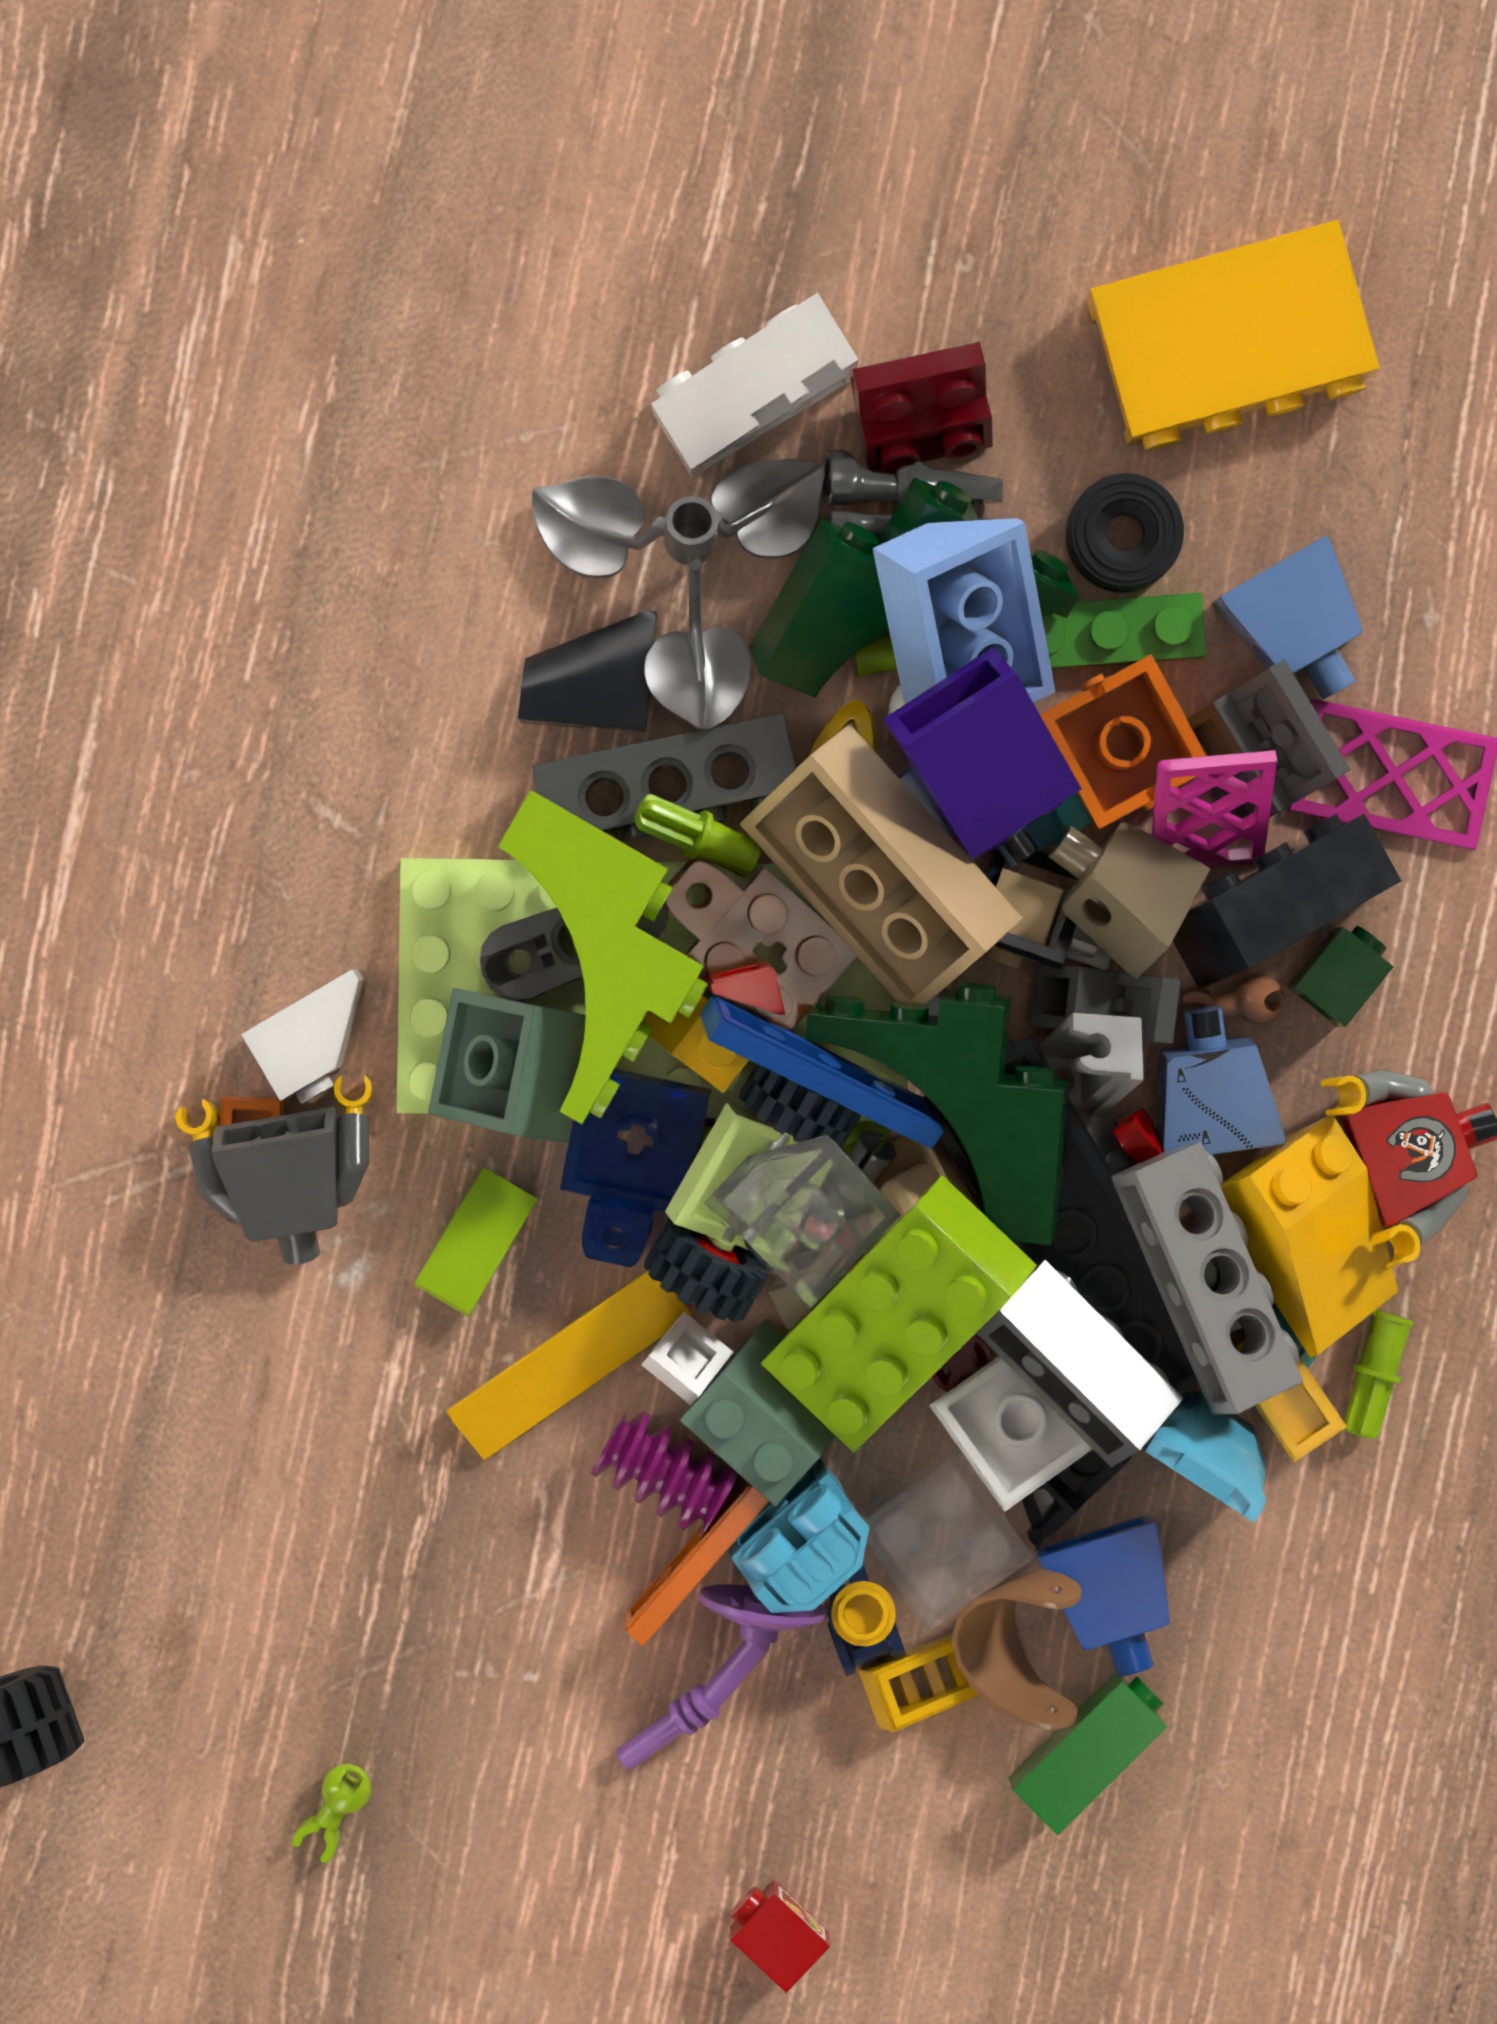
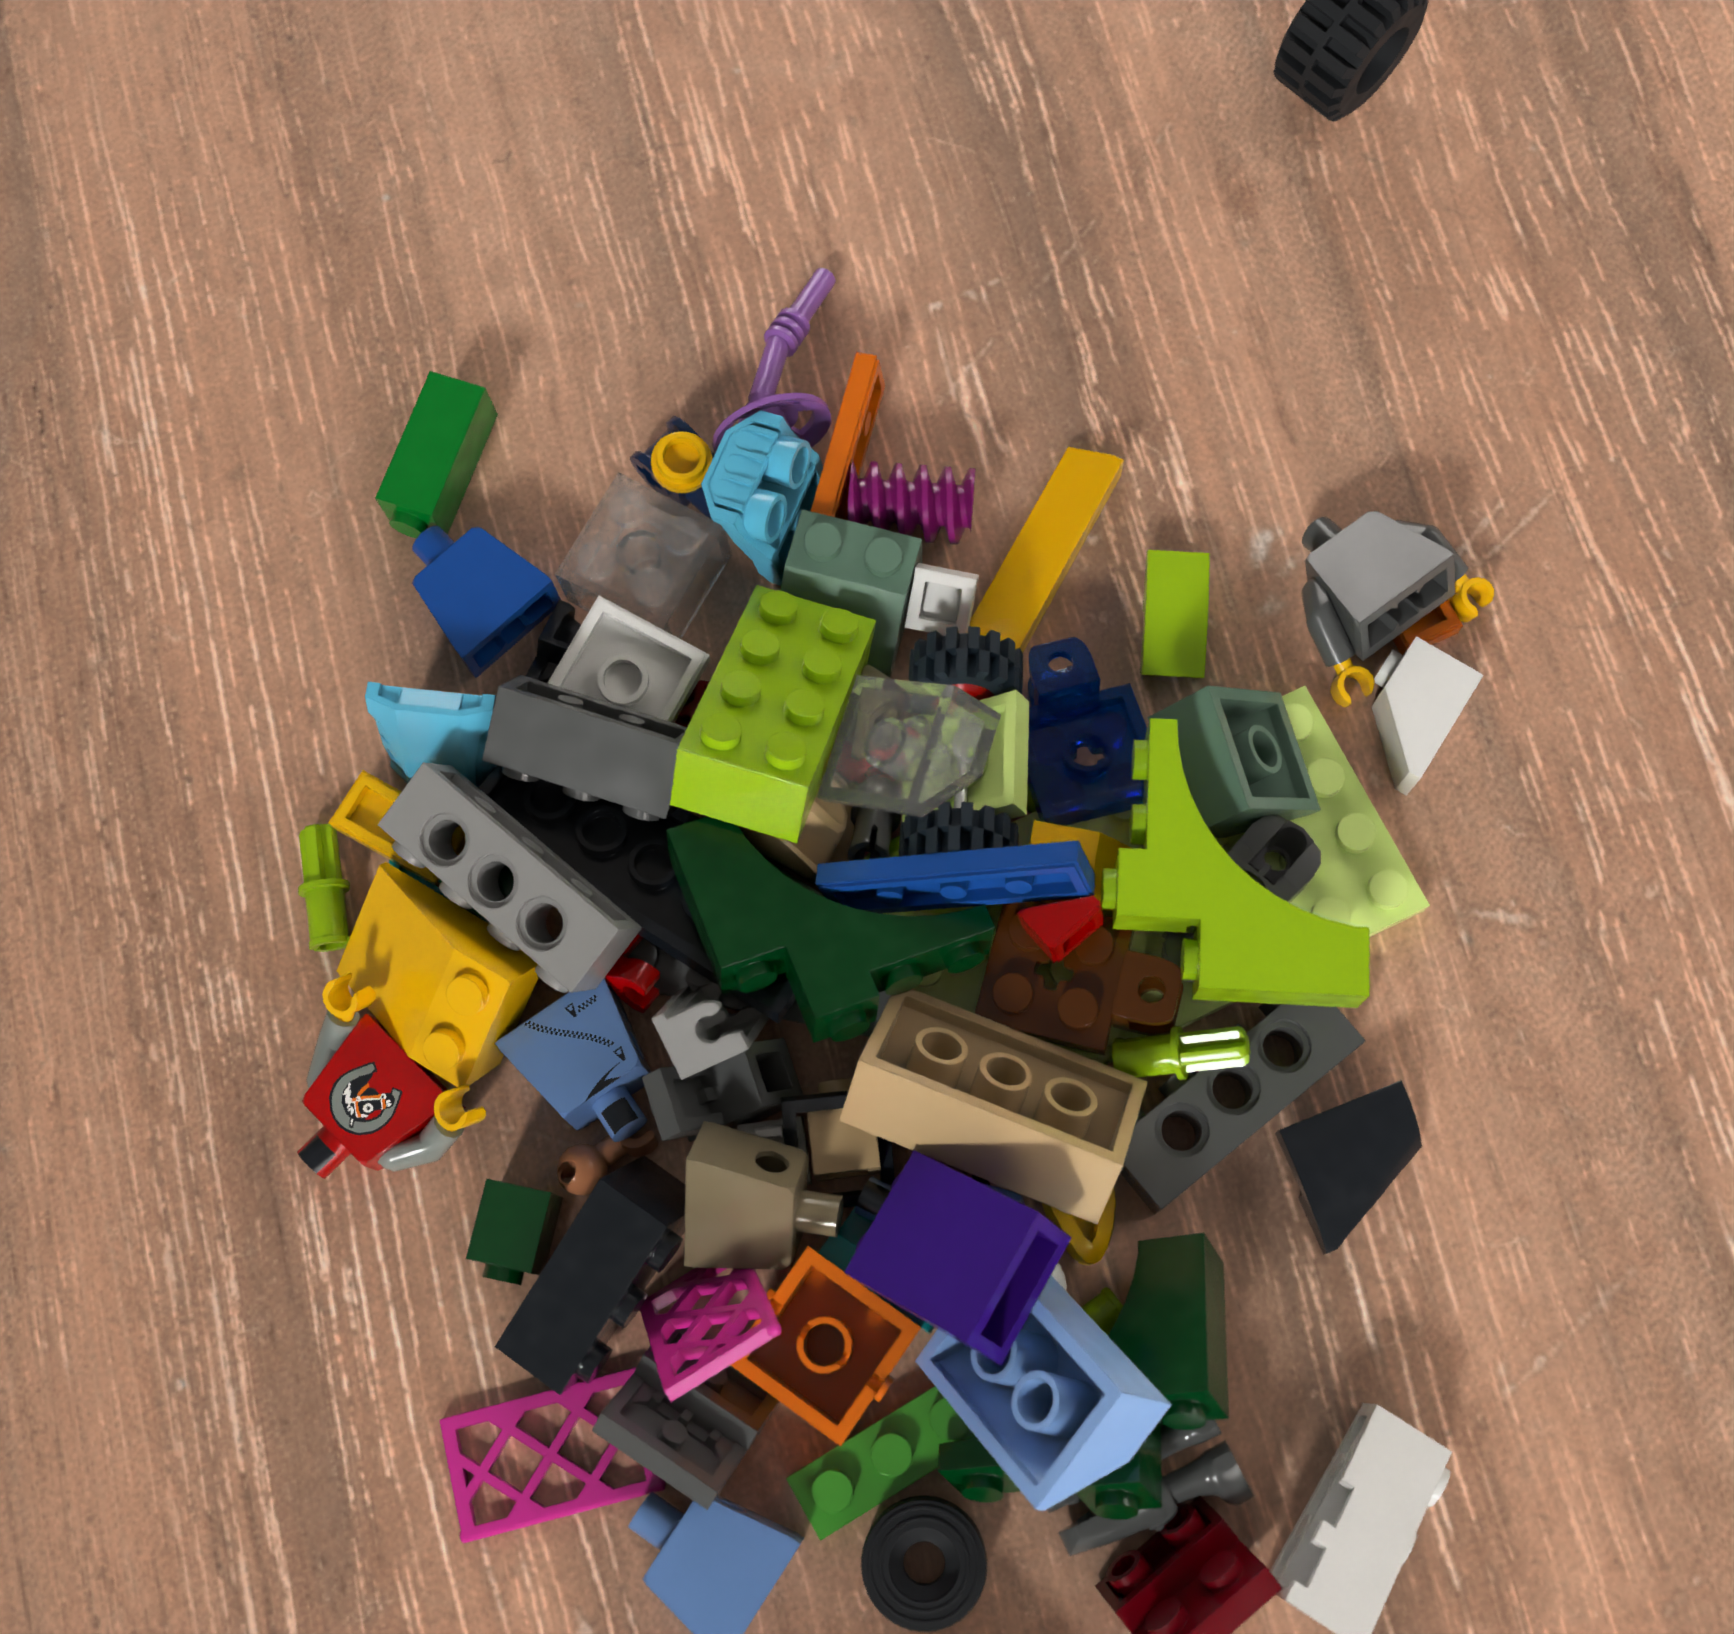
camera: 165 degrees right, 15 degrees down
(341, 1797) = (1040, 142): lime arm -> none
(764, 503) = (1430, 1315): flat silver plant -> none
(777, 1934) = (628, 200): red brick -> none
(876, 1683) = (598, 426): yellow slope -> none
(992, 1655) = (543, 485): medium nougat piece -> none

